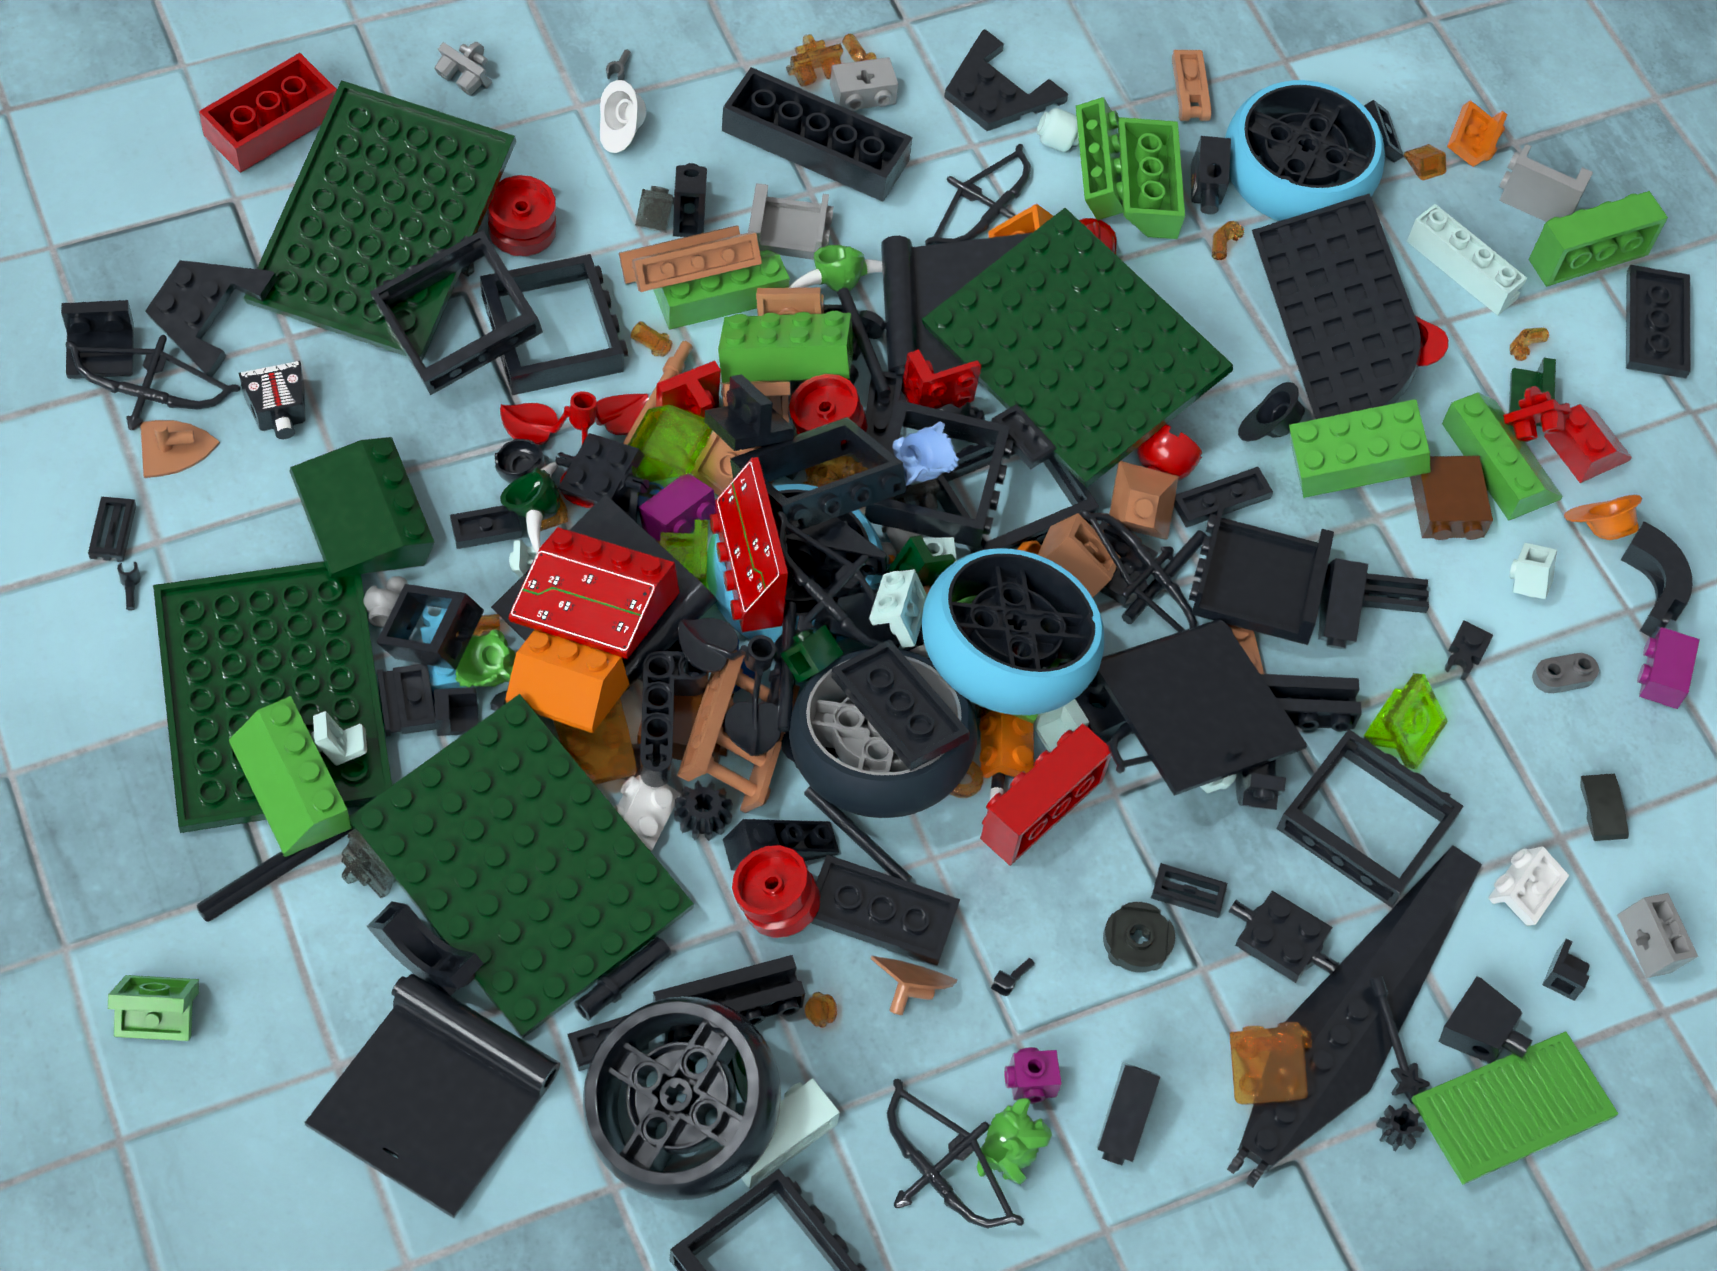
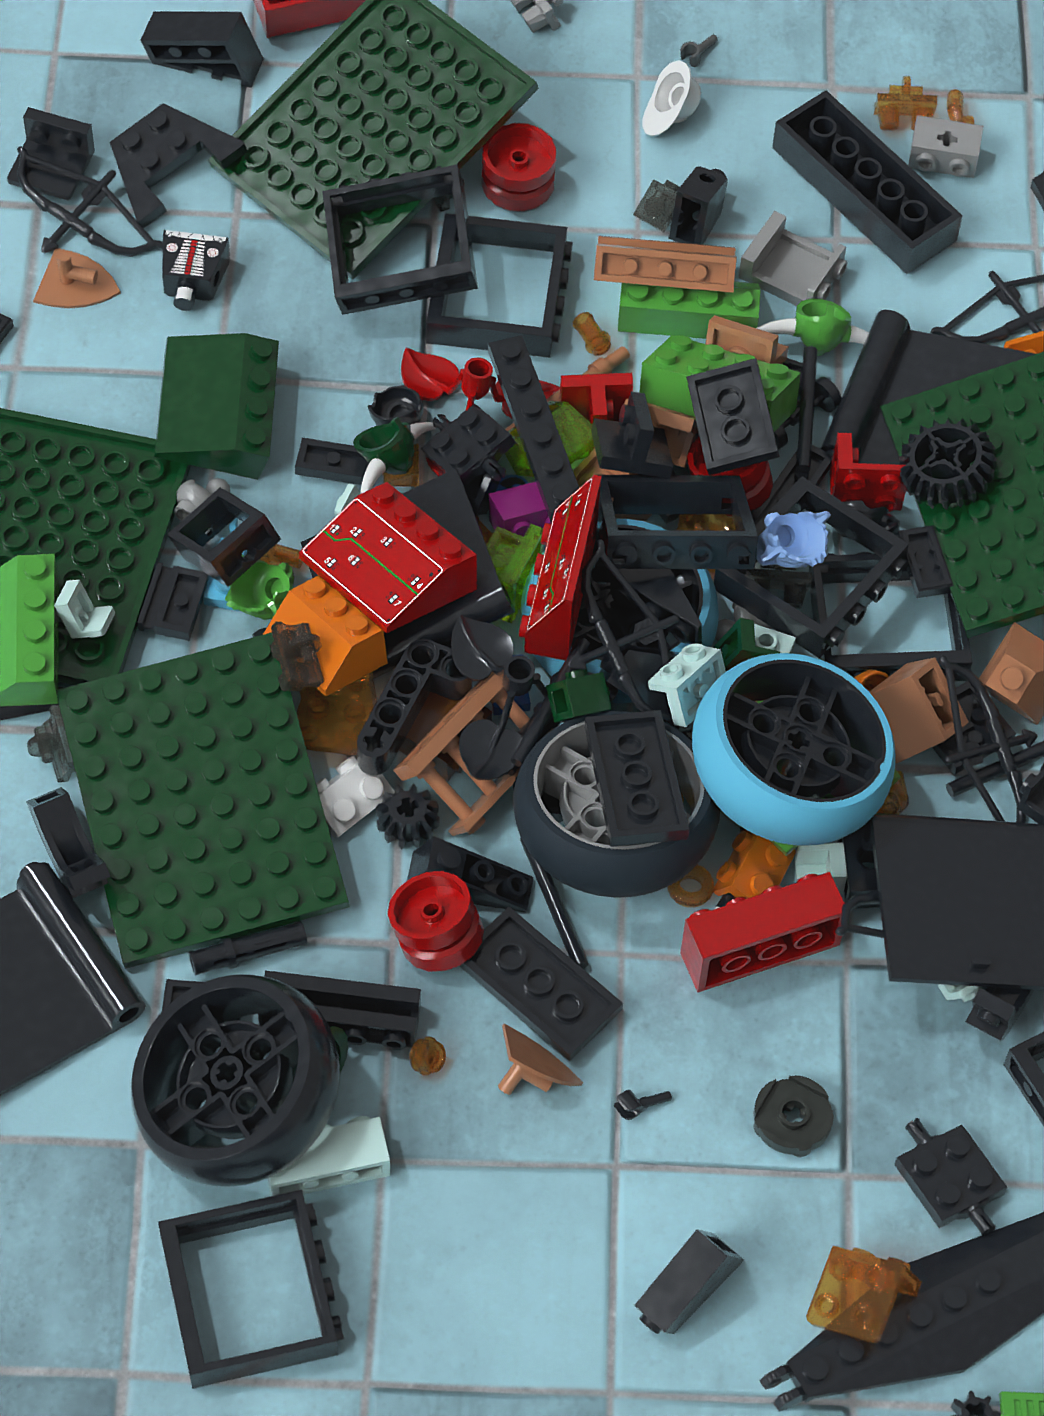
camera: 30 degrees right, 0 degrees up
(188, 193) = (203, 42): none -> black wedge
(455, 710) = (213, 626): black panel -> none
(555, 706) = (297, 655): none -> clear smoke hips
(655, 434) = (533, 421): none -> black plate
(822, 369) = (732, 417): none -> black plate
(959, 1149) = (494, 1248): black piece -> none
(1010, 358) = (943, 474): none -> black gear
(1014, 1141) = (552, 1264): bright green hair -> none
(1033, 1074) = (607, 1205): magenta brick -> none
(1186, 895) = (865, 1101): black tile -> none
(1405, 1075) = (1009, 1372): black piece -> none

